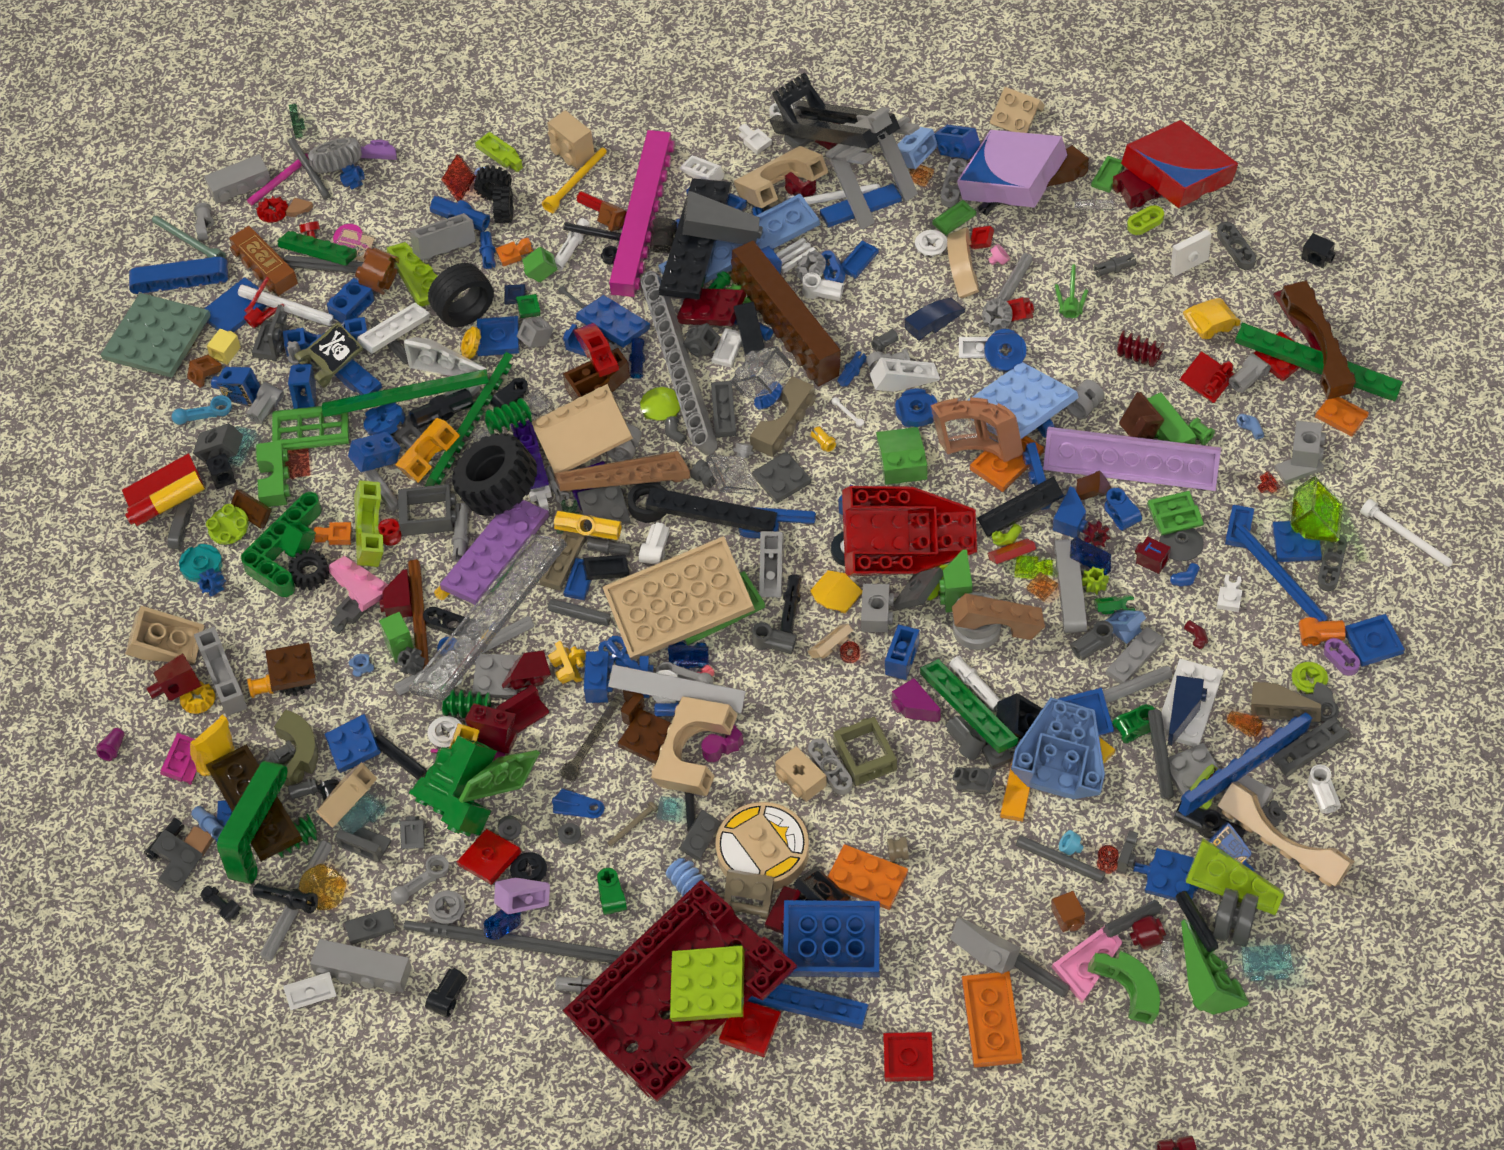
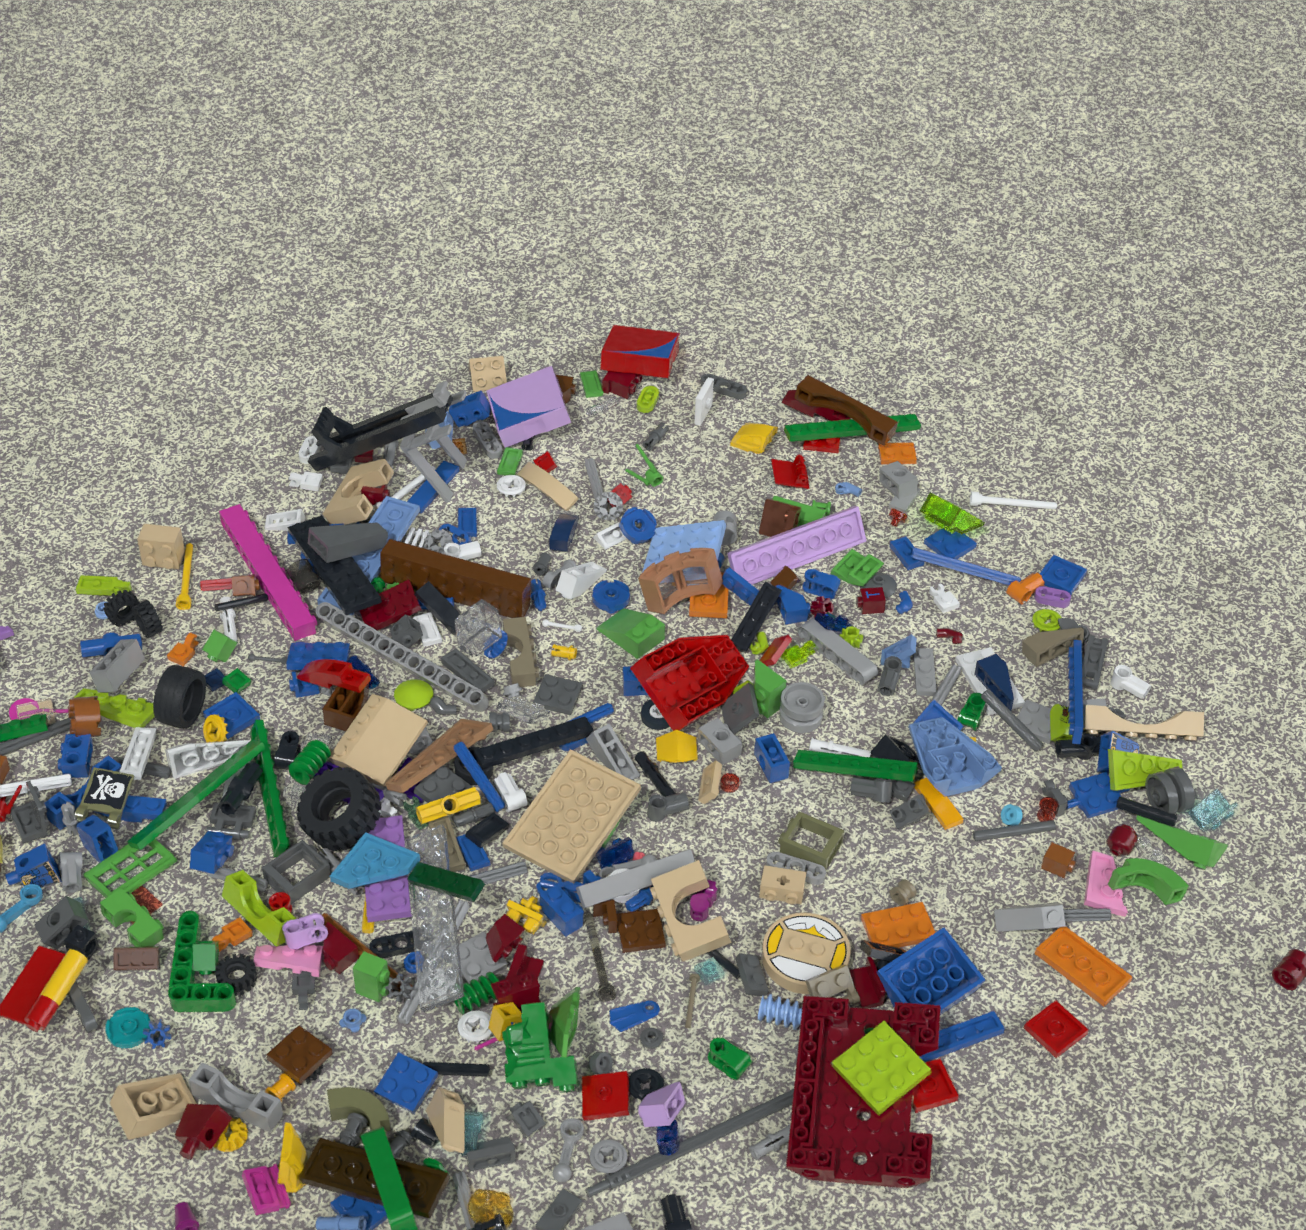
camera: 45 degrees left, 10 degrees down
(227, 525) = (126, 983): lime dish -> none
(378, 565) = (303, 931): none -> lavender piece
(383, 419) = (184, 829): blue plate -> none
(434, 439) = (254, 840): light orange arch -> none
(458, 177) = (86, 619): clear red piece -> none
(480, 539) = (372, 862): none -> dark azure plate
(487, 250) = (159, 658): blue axle -> none
(515, 592) = (446, 881): none -> dark green plate
(535, 332) = (263, 695): light grey brick -> none
(609, 251) = (269, 613): black plate -> none
(636, 514) = (479, 776): none -> blue axle
(915, 702) = (814, 787): magenta slope -> none
(976, 611) = (811, 691): medium nougat arch -> none
(998, 255) = (569, 468): bright pink tile -> none
(1042, 586) = (817, 663): clear orange tile -> none
(1109, 604) = (876, 647): green plate -> none
(1126, 921) = (1104, 837): dark grey axle -> none
(1139, 349) = (728, 477): dark red piece -> none
(1246, 723) = (1039, 671): clear orange cone -> none
(1252, 369) = (814, 457): light grey piece -> none
(1318, 251) = (782, 363): black brick -> none
(1335, 571) = (986, 537): dark grey beam -> none

